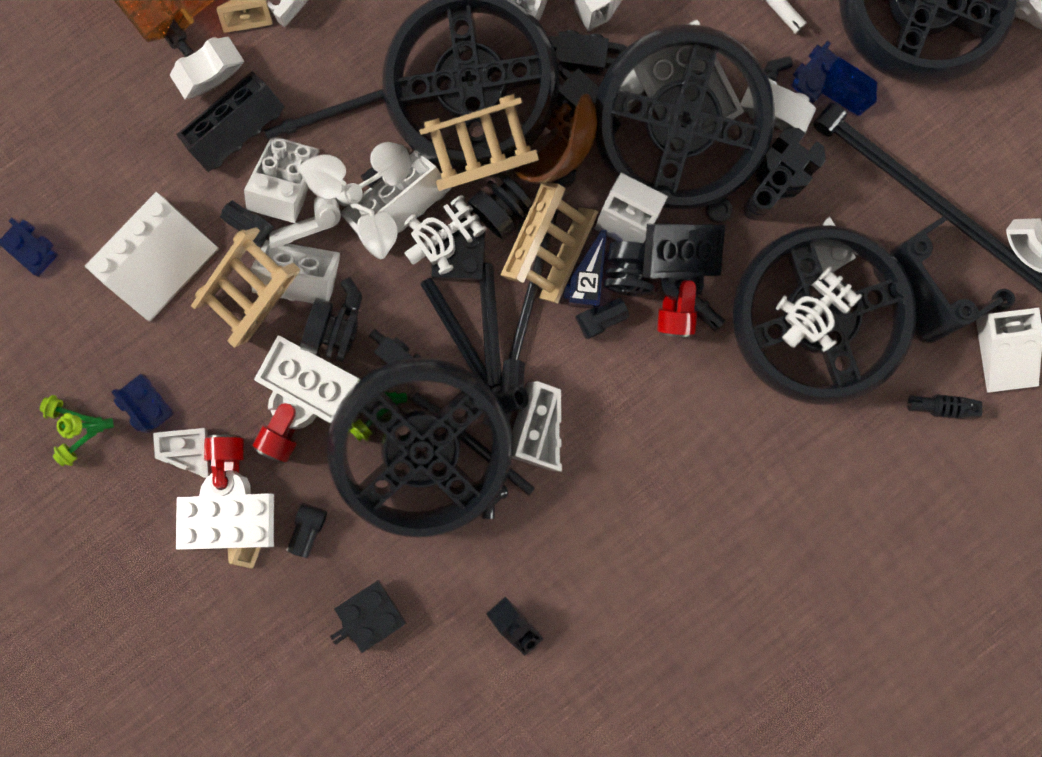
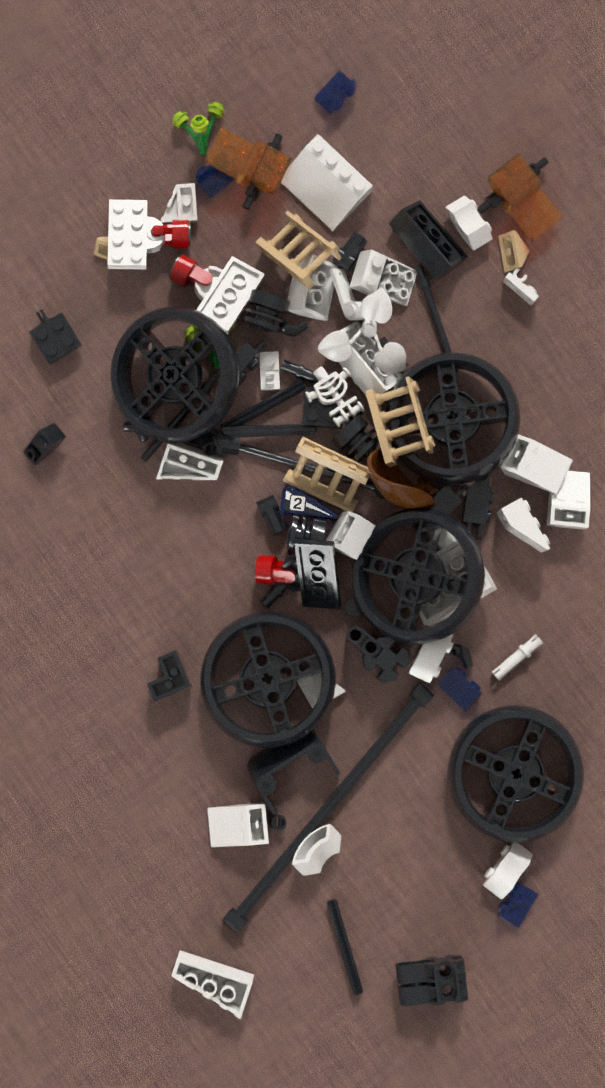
camera: 90 degrees right, 0 degrees up
(130, 350) = (254, 166): none -> clear orange piece
(308, 524) = (124, 295): black piece -> none
(409, 286) = (298, 371): none -> black pin
(409, 326) = (269, 371): none -> white plate
(800, 329) = (254, 655): white piece -> none
(829, 441) = (174, 679): none -> black brick
(851, 87) = (446, 711): clear blue bracket -> none
(946, 406) = (197, 774): black hinge -> none

